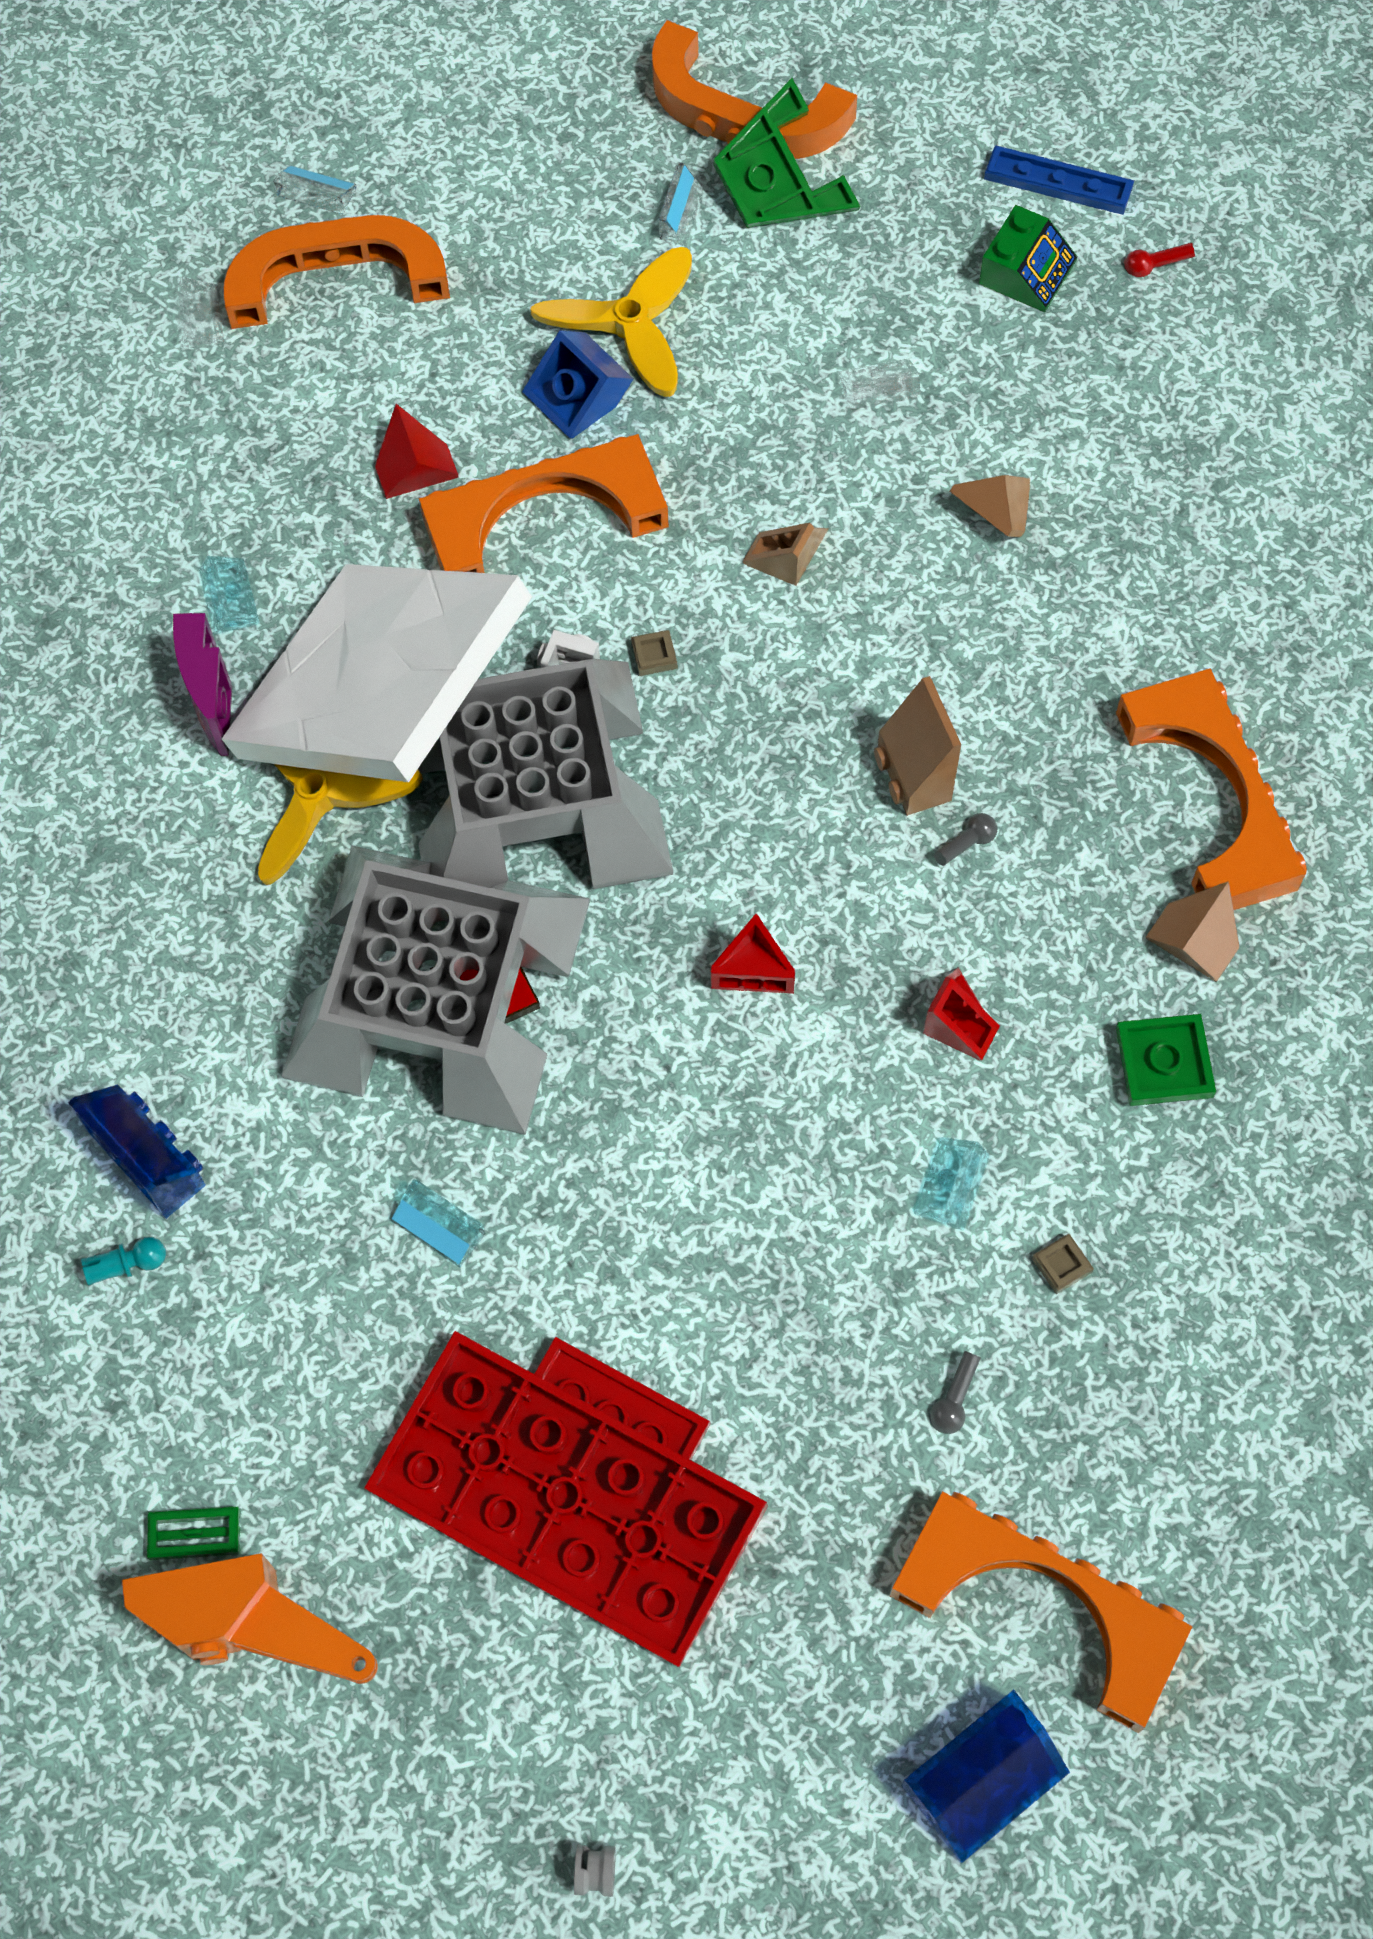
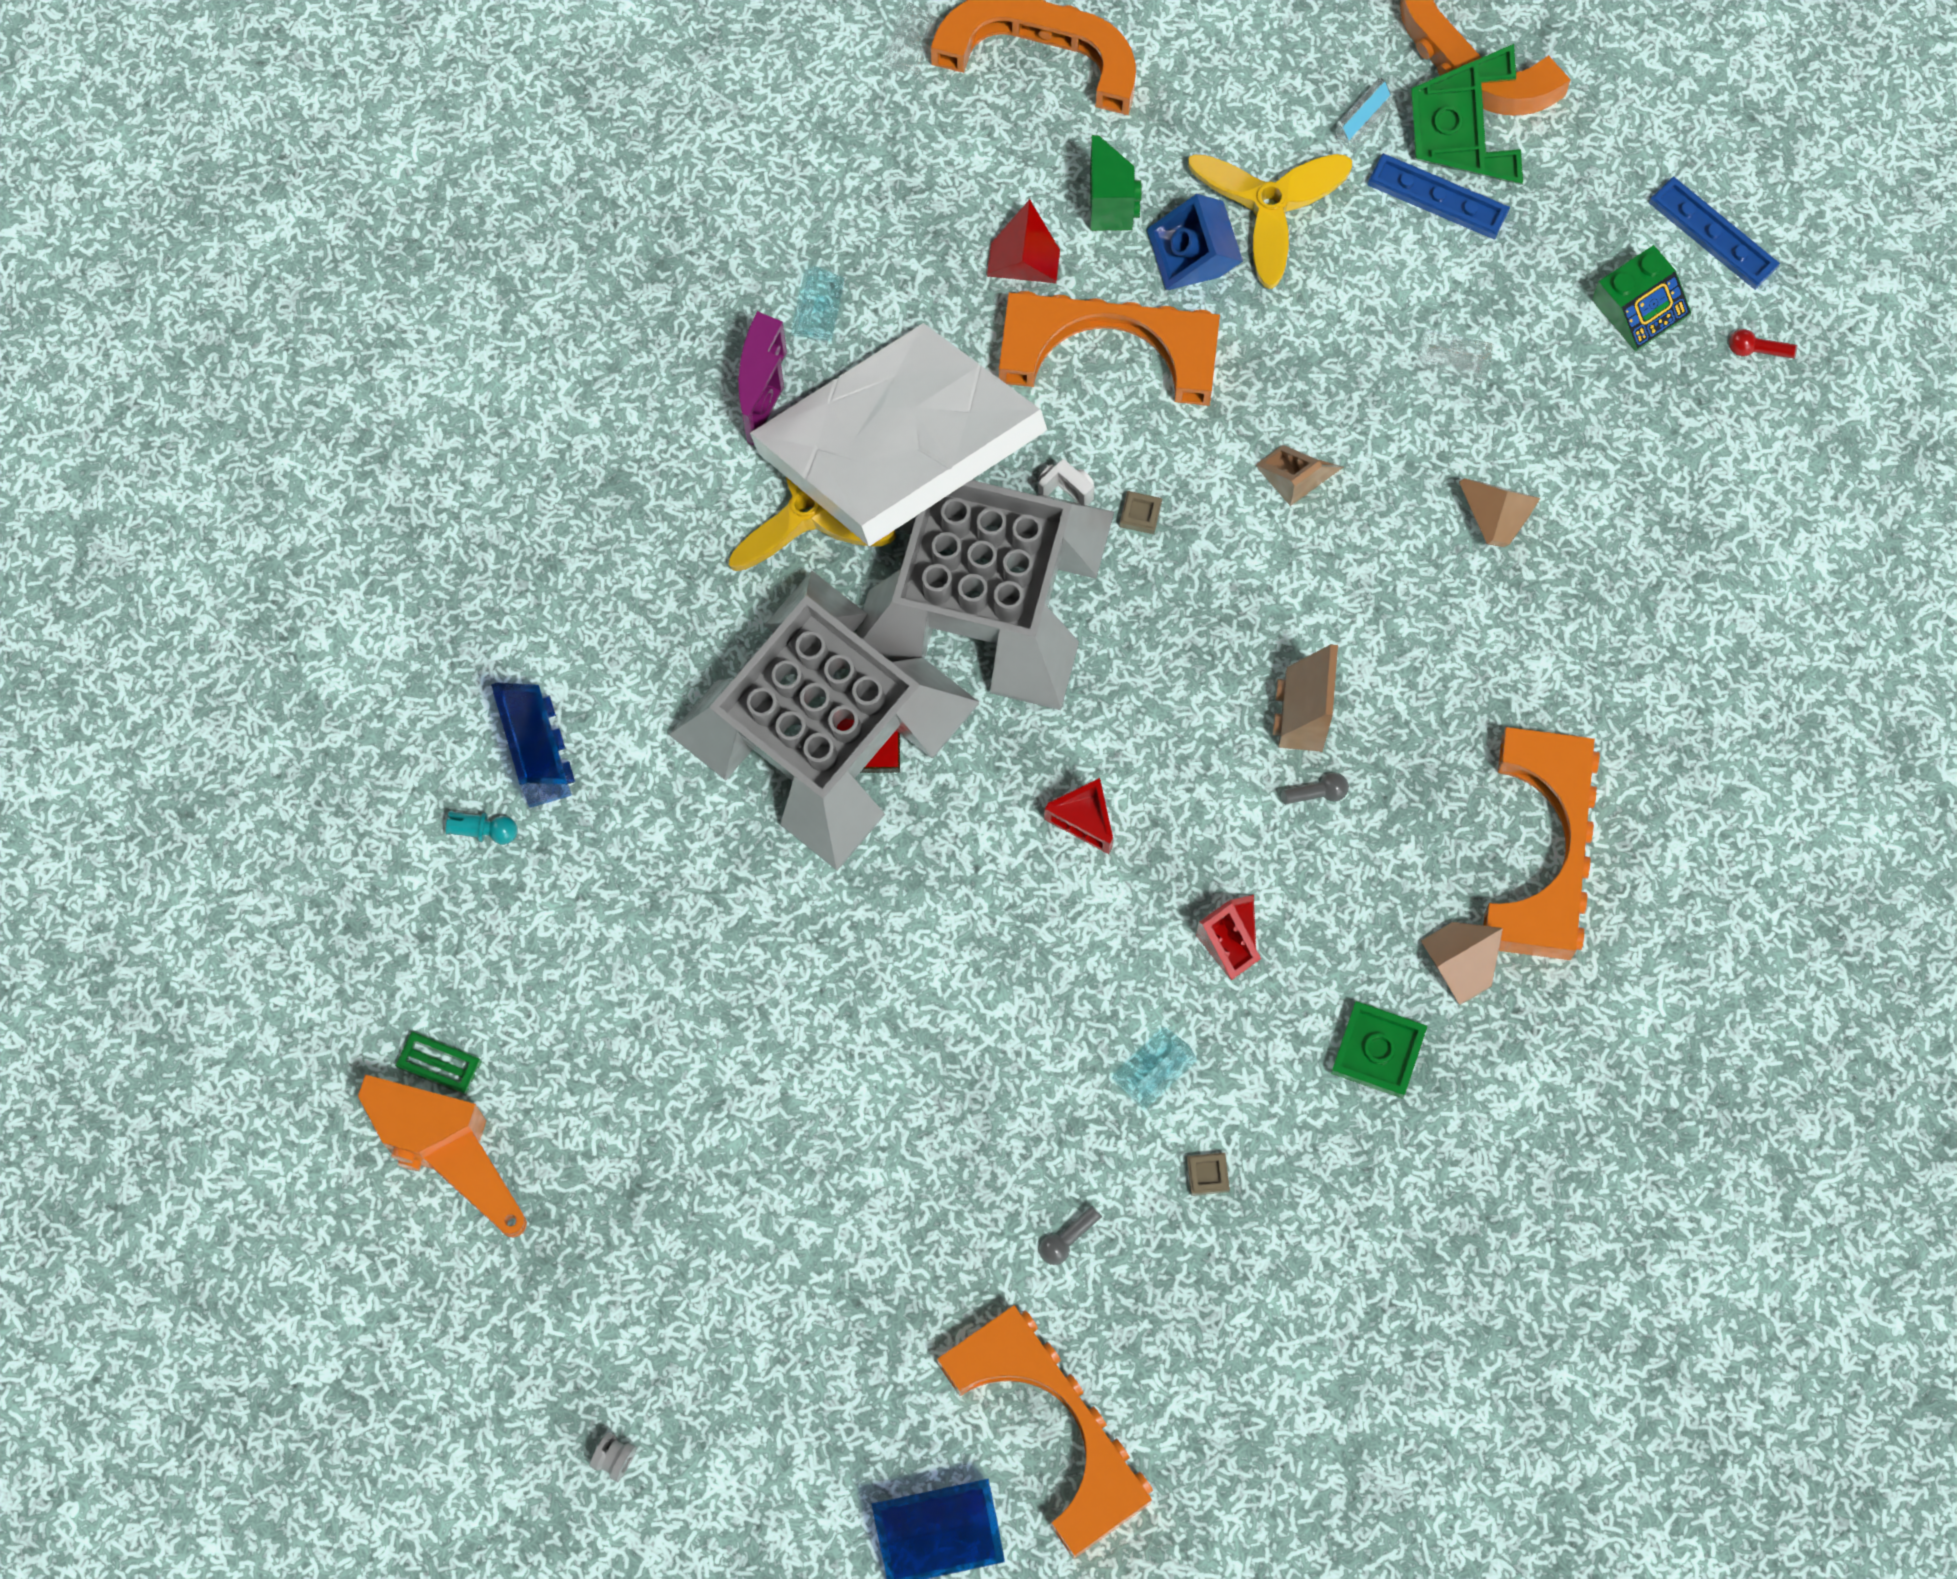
camera: 25 degrees right, 5 degrees up
(438, 1223) = (734, 910): slope -> none
(471, 362) = (1113, 189): none -> green slope
(573, 1487) = (737, 1165): red slope -> none
(786, 250) = (1438, 196): none -> blue tile

